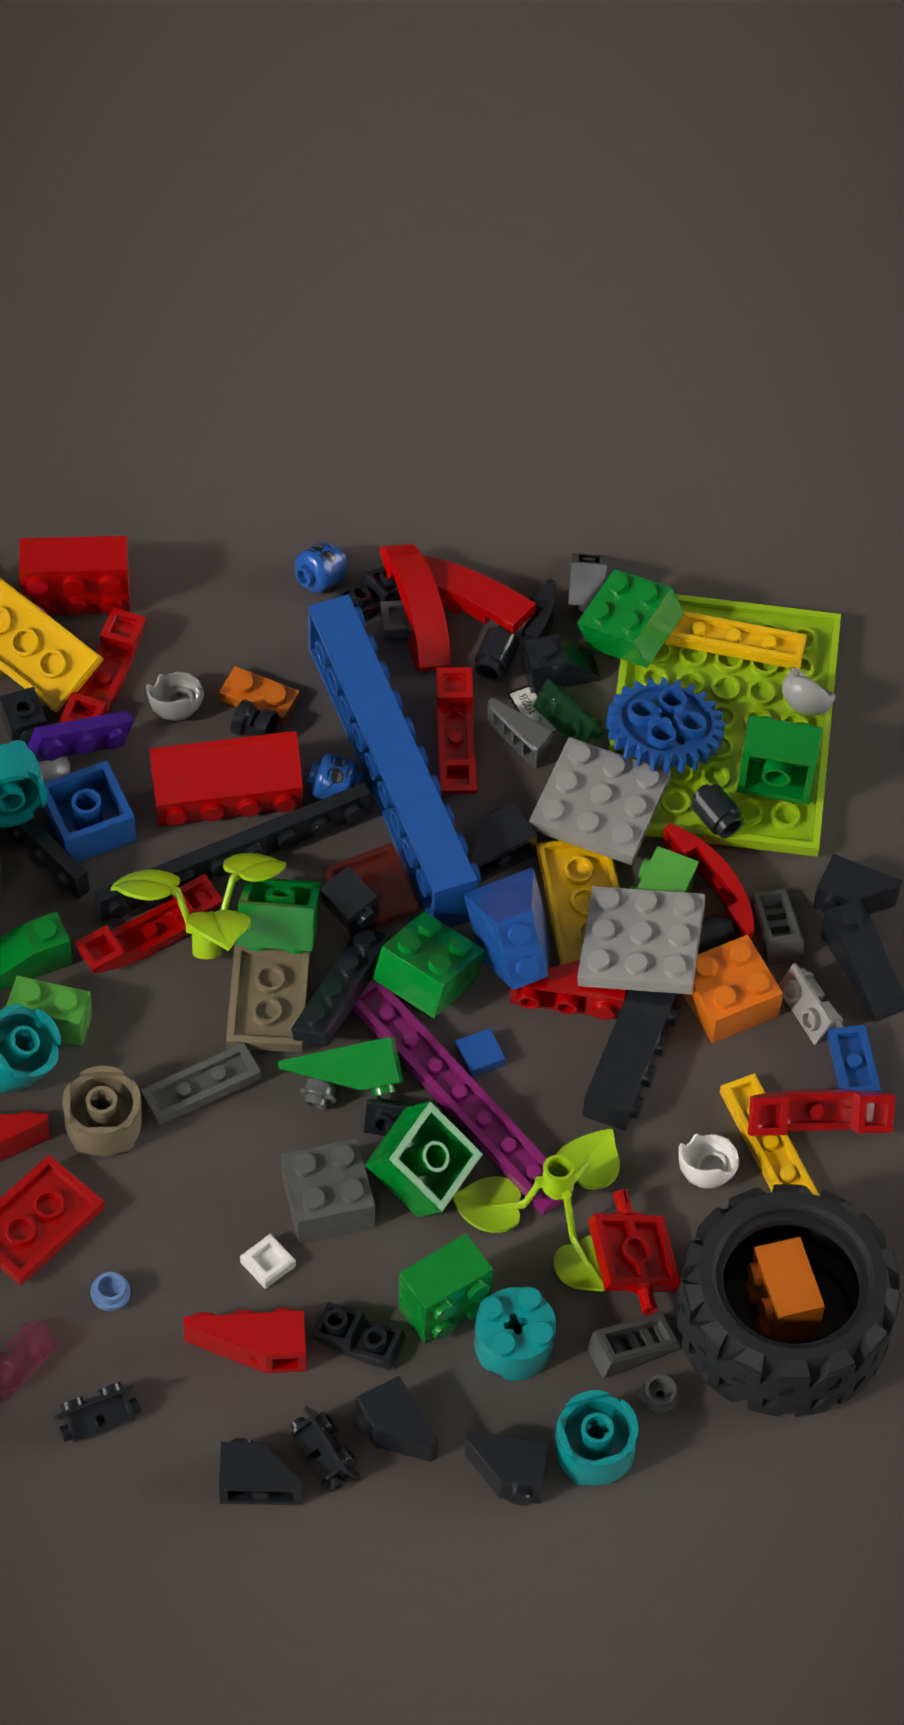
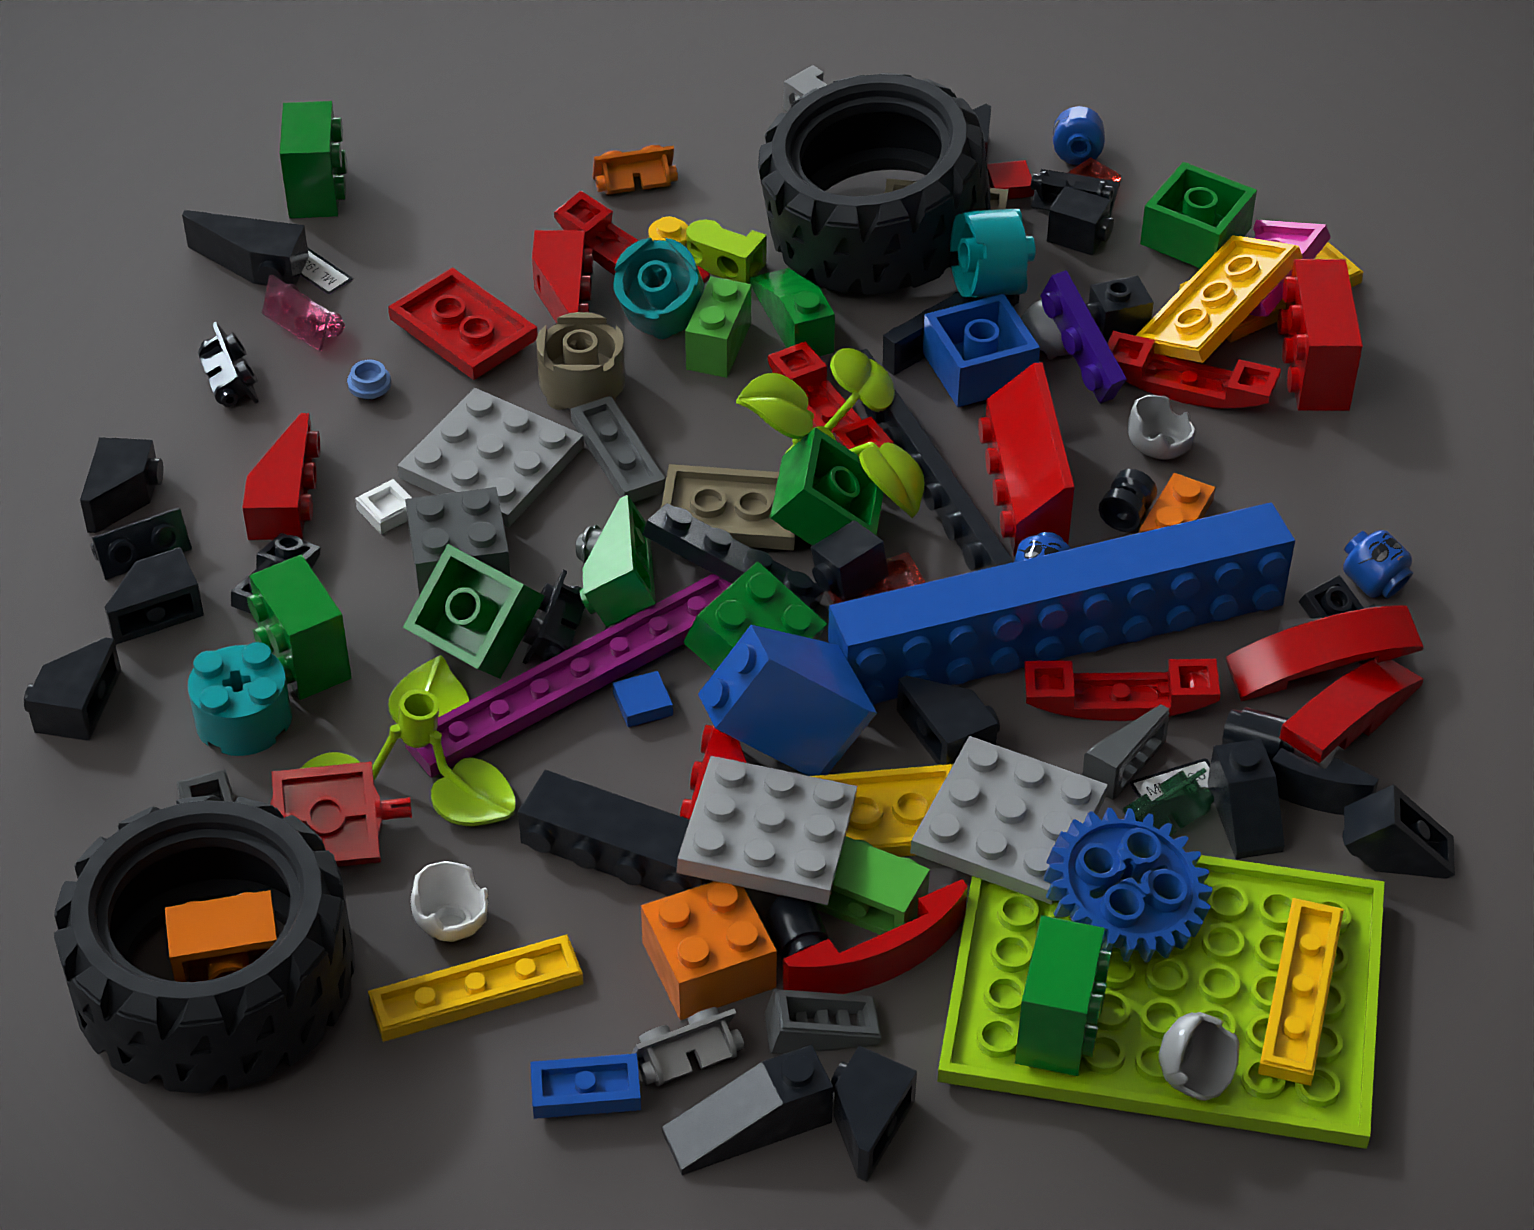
camera: 95 degrees right, 10 degrees down
(203, 1185) = (489, 446): none -> light grey plate
(616, 1434) = (81, 762): teal brick -> none
(630, 618) = (1309, 853): green brick -> none
(717, 810) = (986, 936): black brick -> none
(820, 1111) = (508, 1019): red slope -> none

